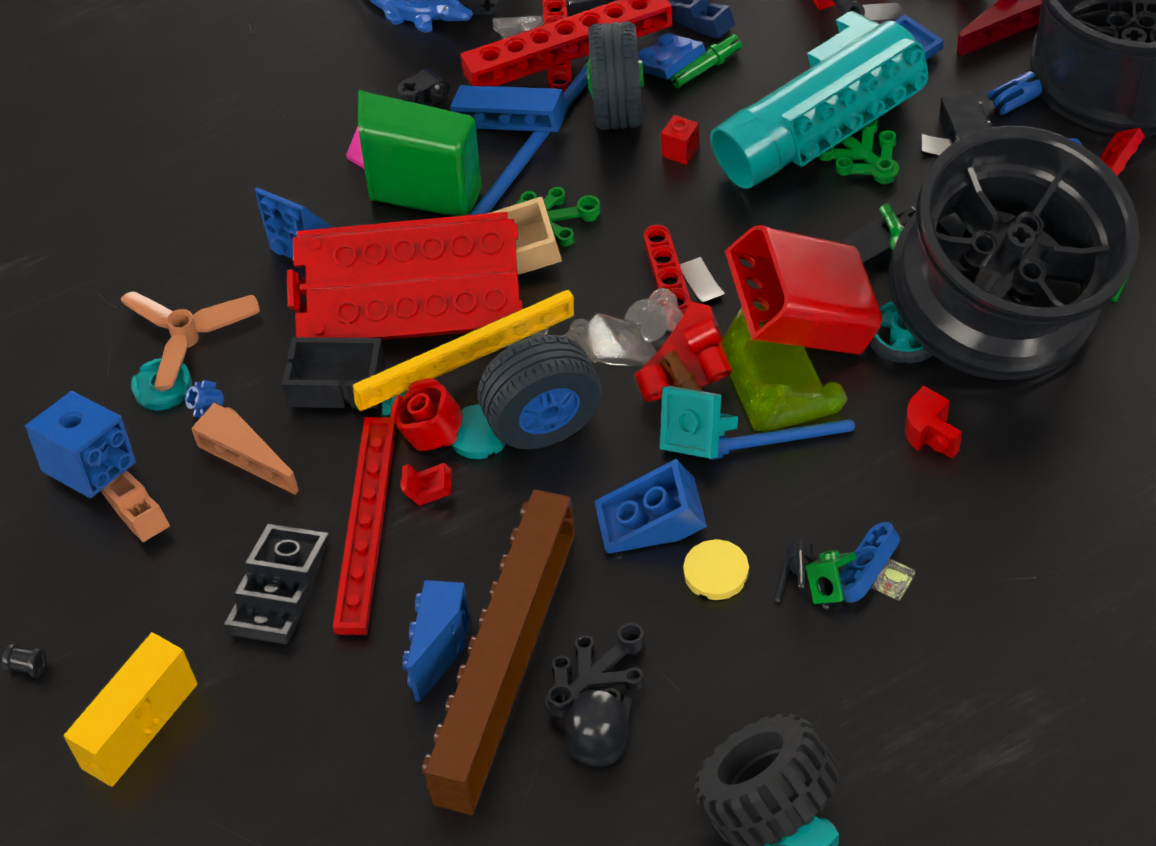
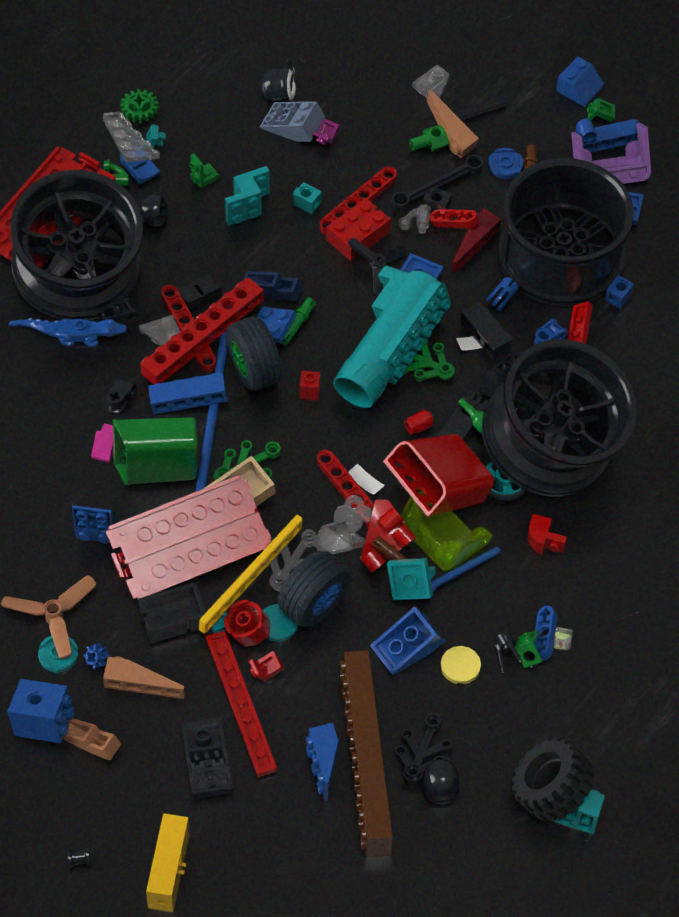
camera: 30 degrees left, 5 degrees up
(814, 223) = (419, 422): none -> red brick

